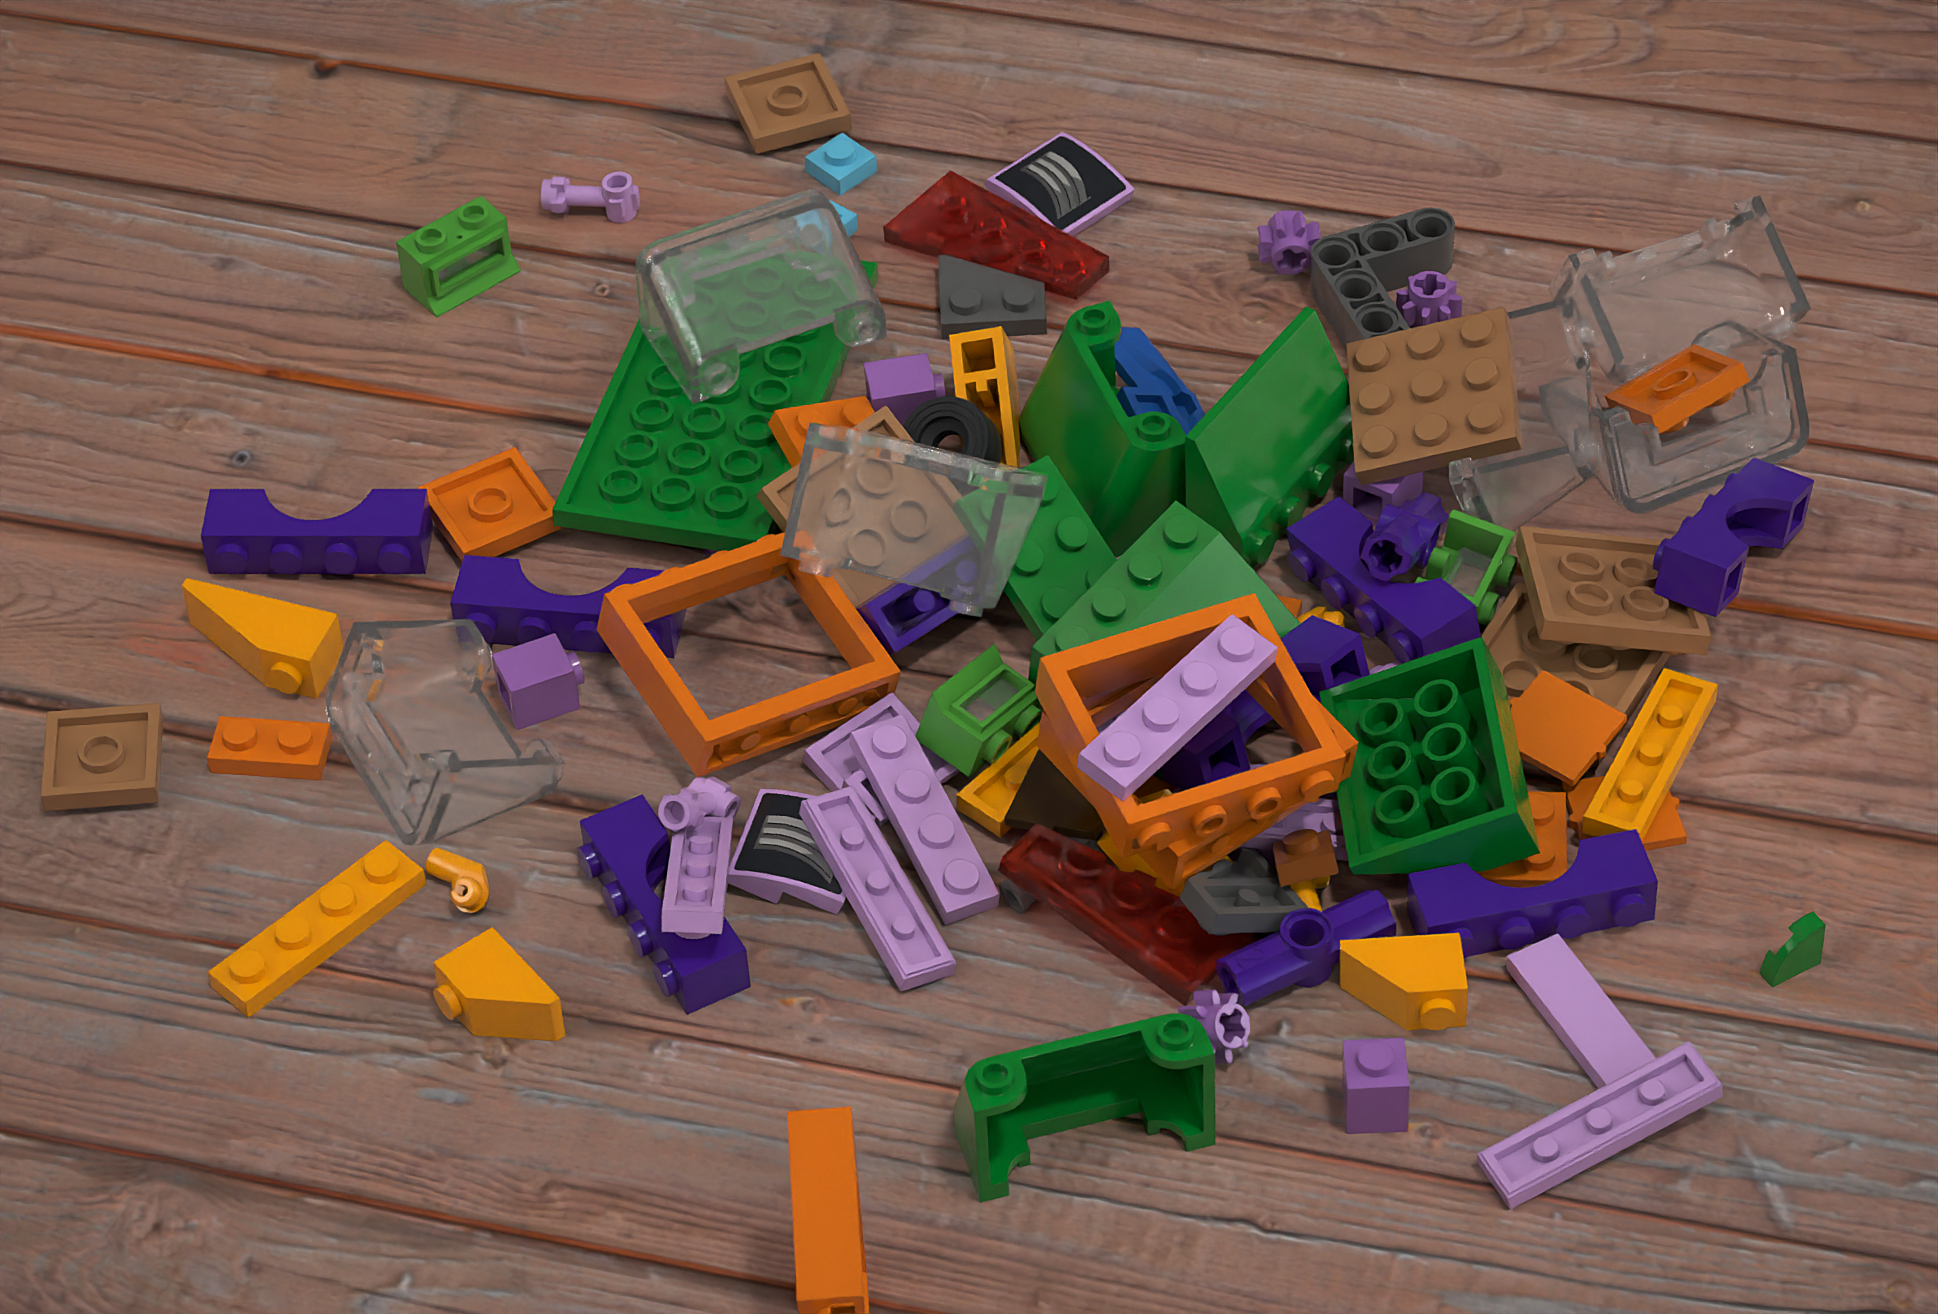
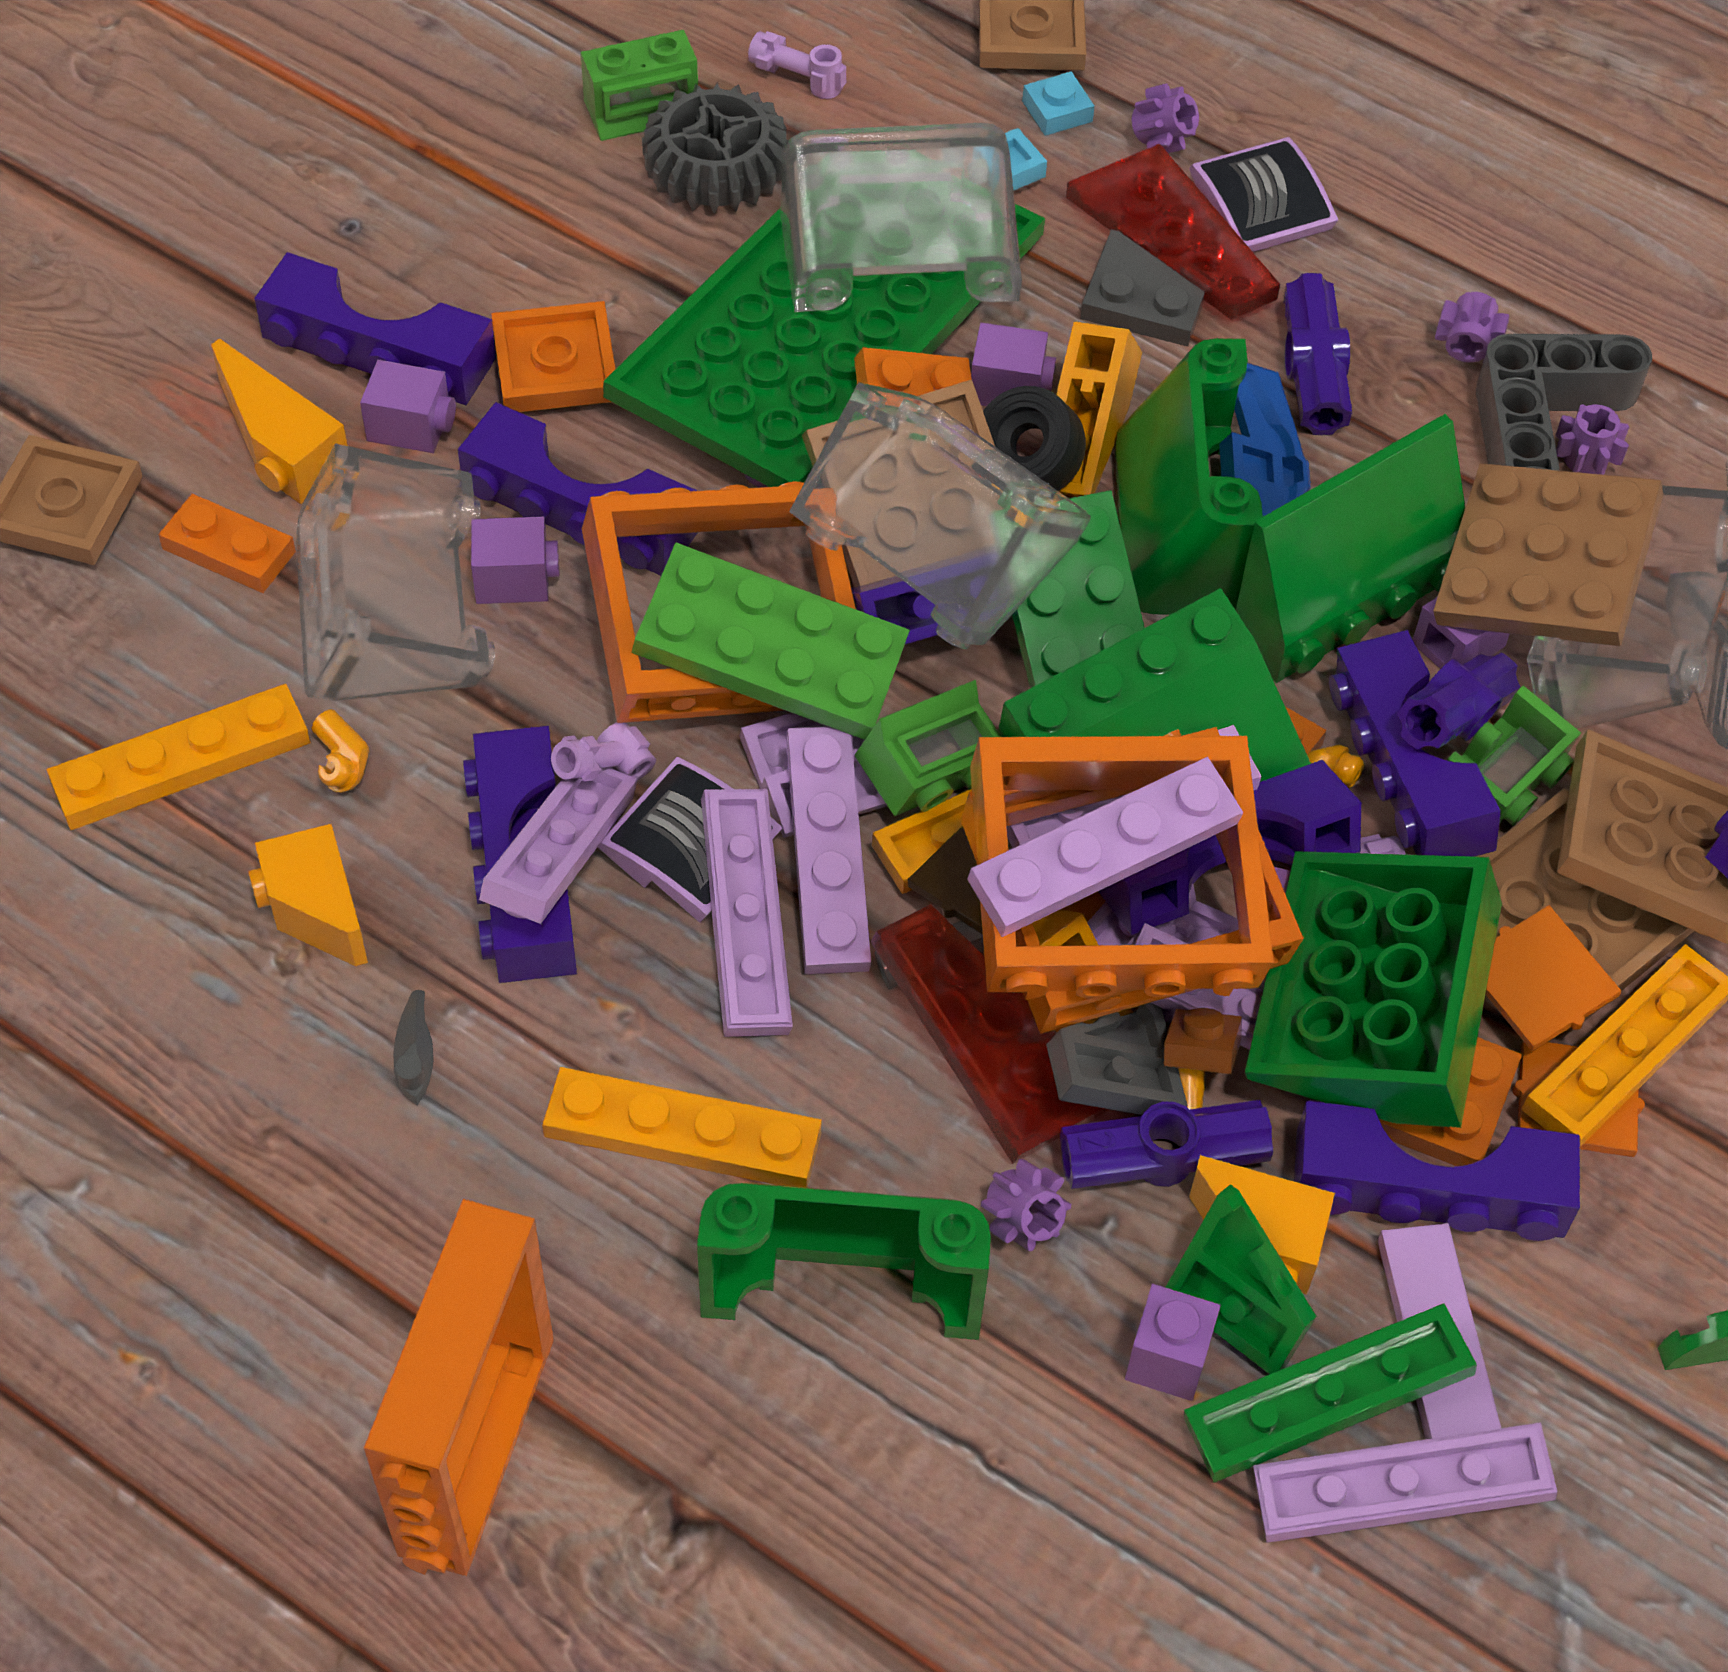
camera: 15 degrees right, 10 degrees up
(380, 584) = (407, 406): none -> medium lavender brick
(551, 290) = (714, 147): none -> dark grey gear
(641, 1084) = (413, 1049): none -> dark grey bar
(809, 664) = (770, 641): none -> bright green plate
(887, 1068) = (682, 1128): none -> light orange plate
(946, 147) = (1165, 118): none -> medium lavender gear
(1164, 304) = (1317, 354): none -> dark purple piece
(1436, 1032) = (1242, 1272): none -> green wing
(1514, 1079) = (1329, 1392): none -> green plate

